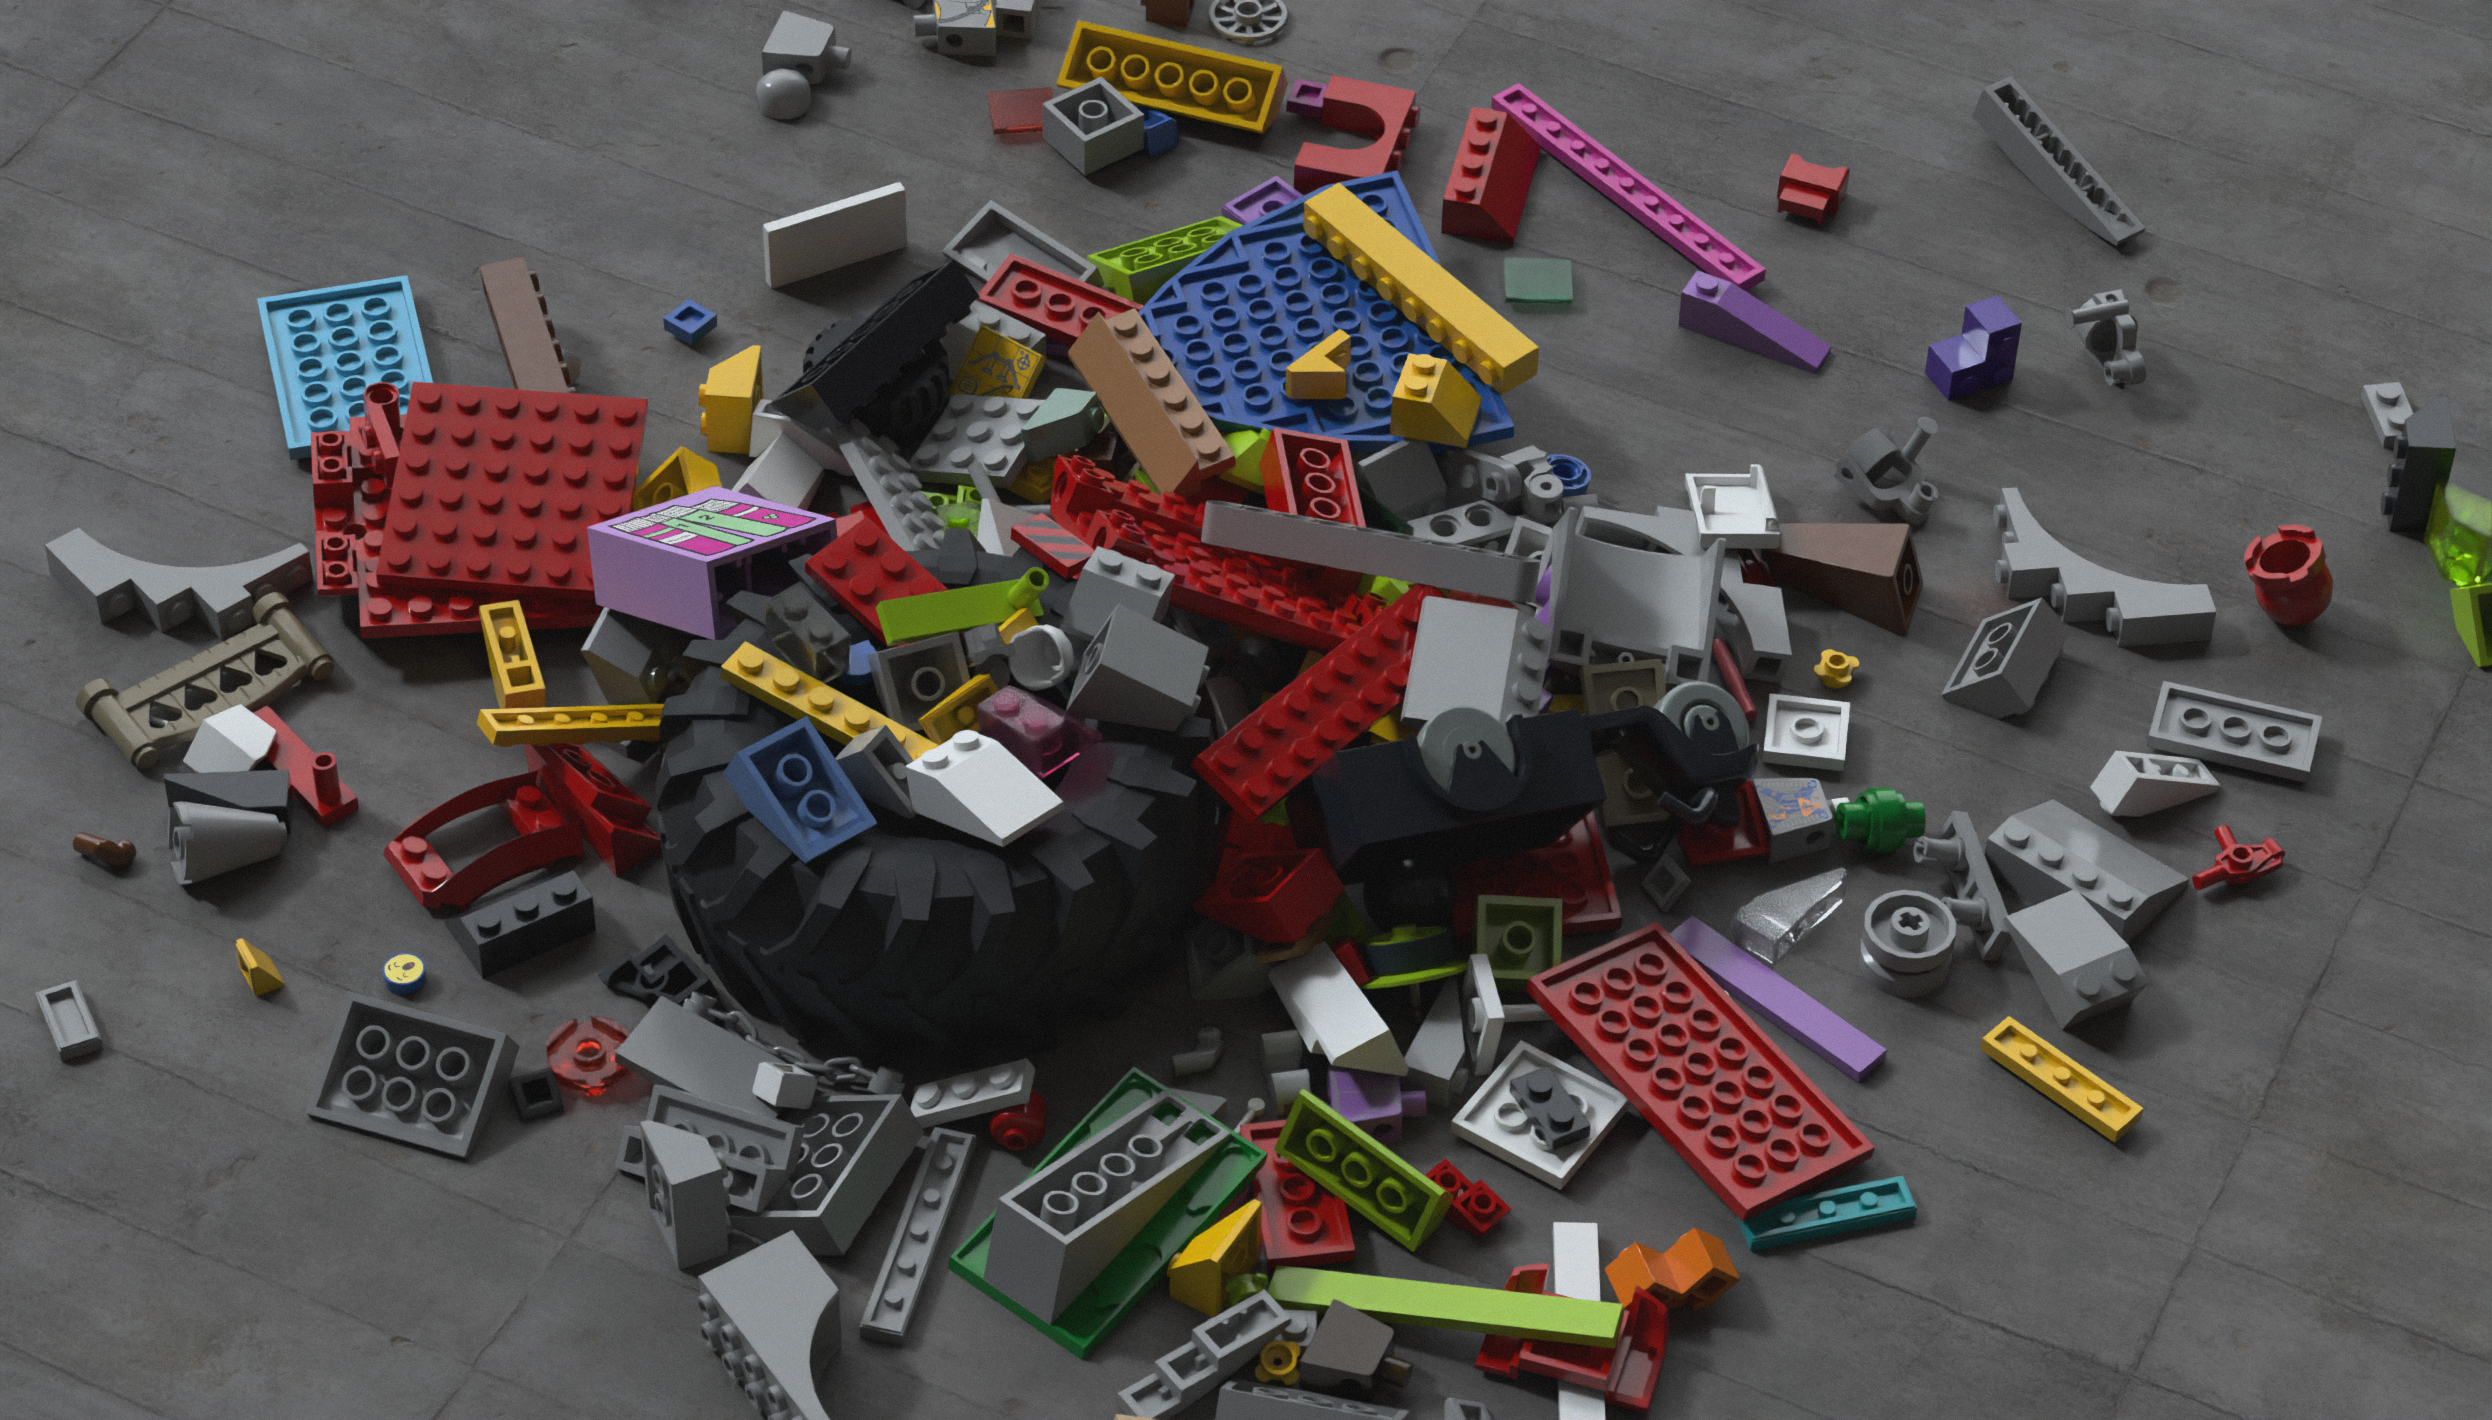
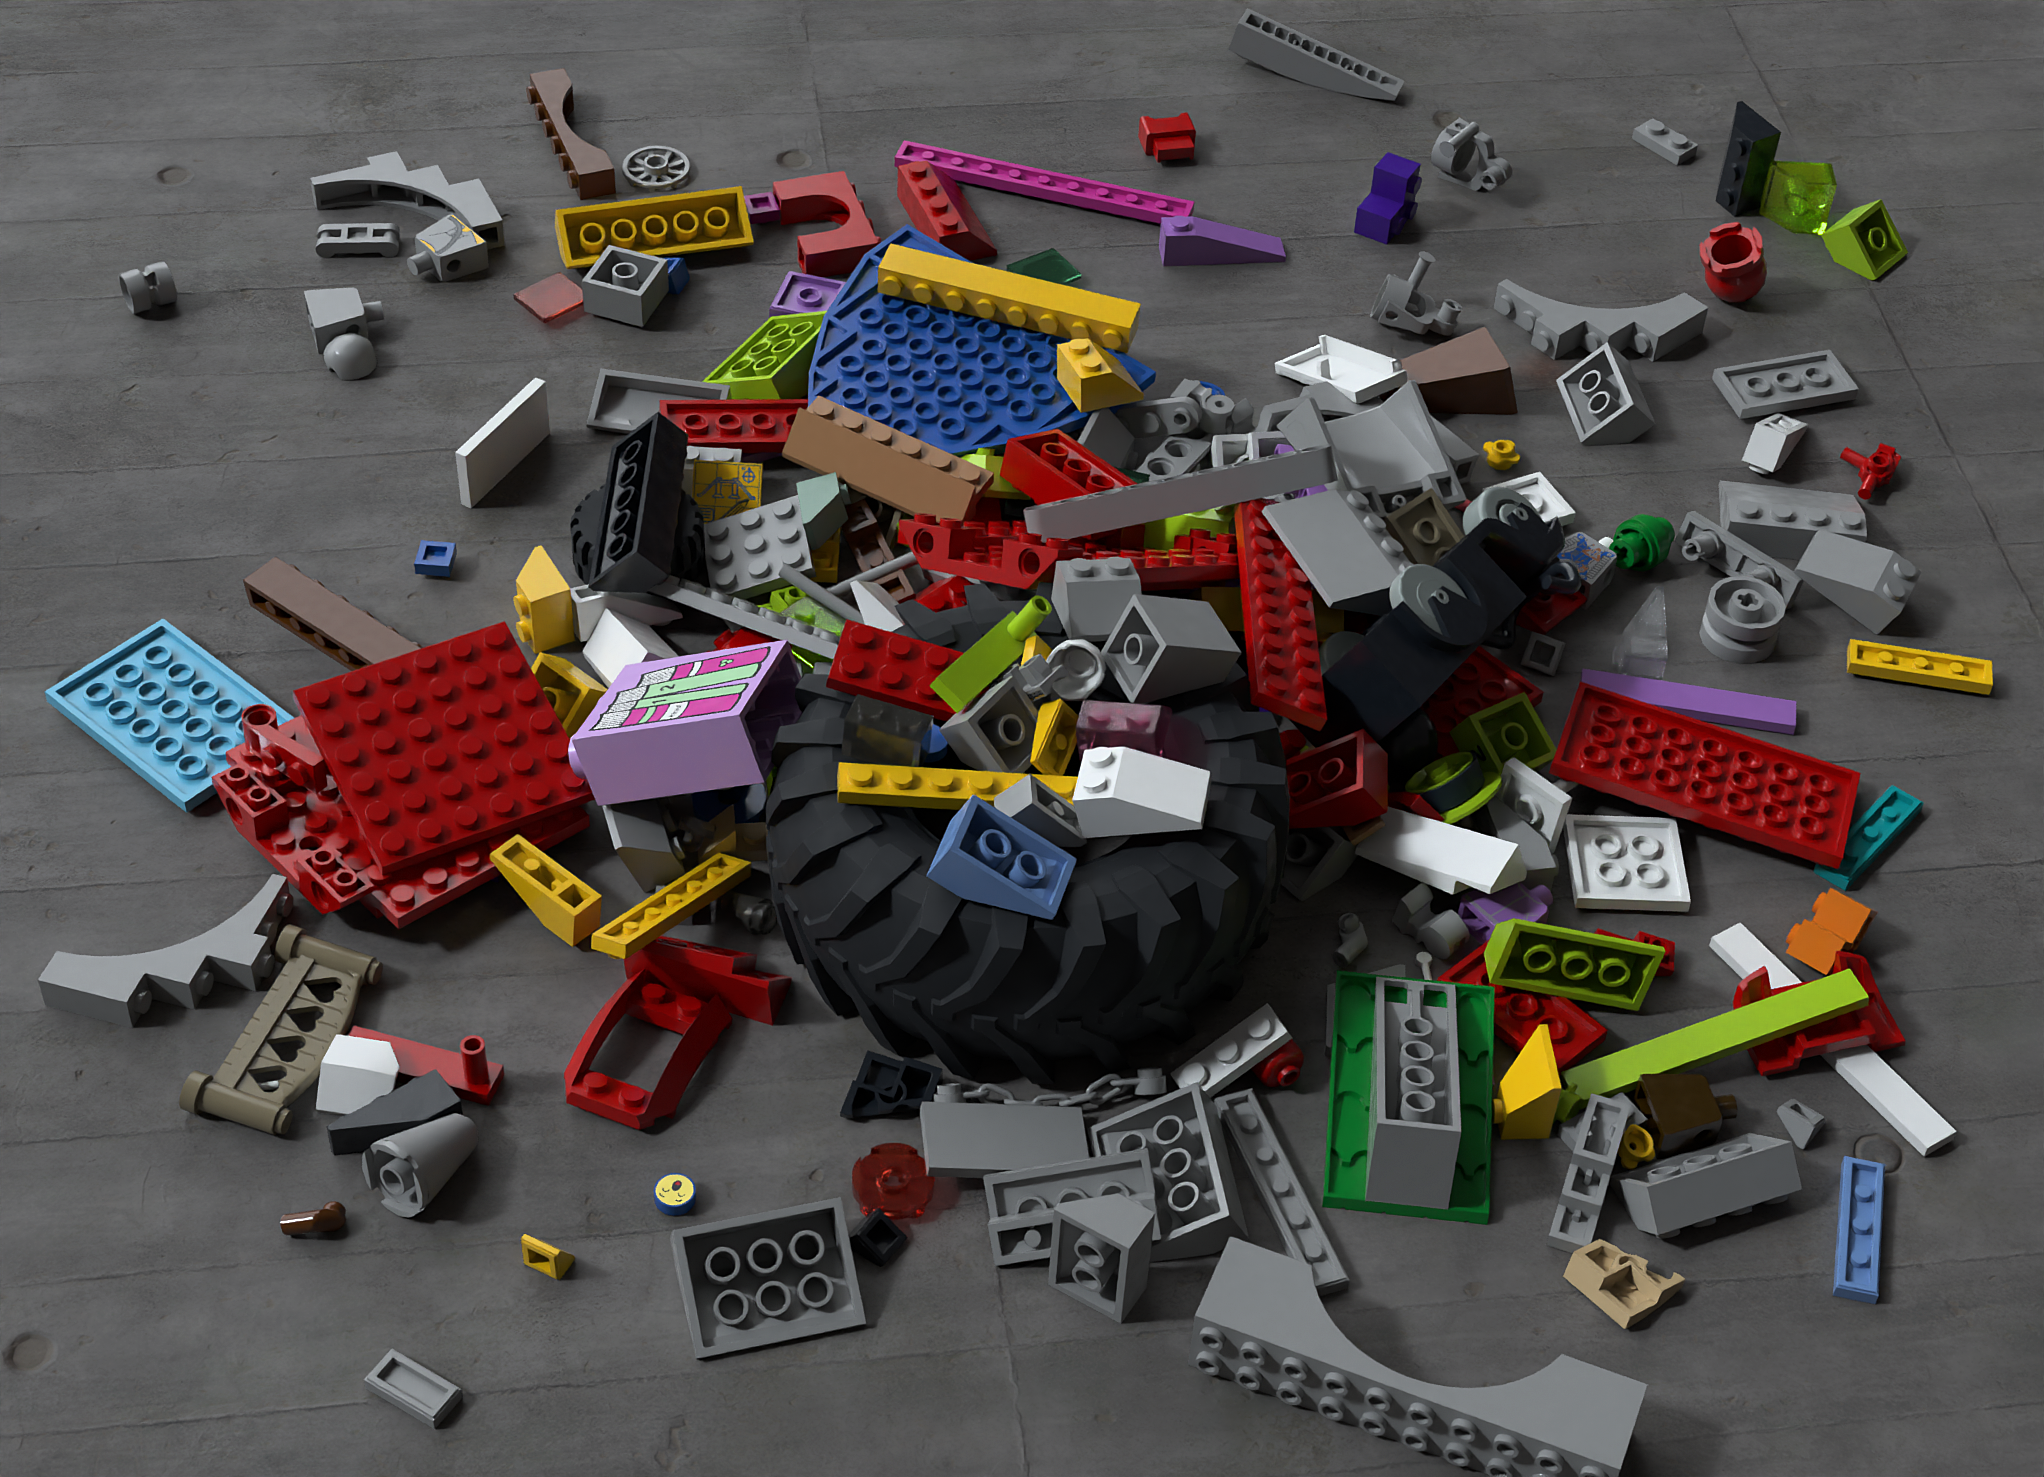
camera: 35 degrees left, 0 degrees up
(524, 922) = (736, 1097): black slope -> none
(784, 1085) = (1080, 1124): white slope -> none
(1052, 545) = (996, 581): tile -> none
(1321, 370) = (994, 387): yellow slope -> none
(1549, 1108) = (1637, 853): black plate -> none

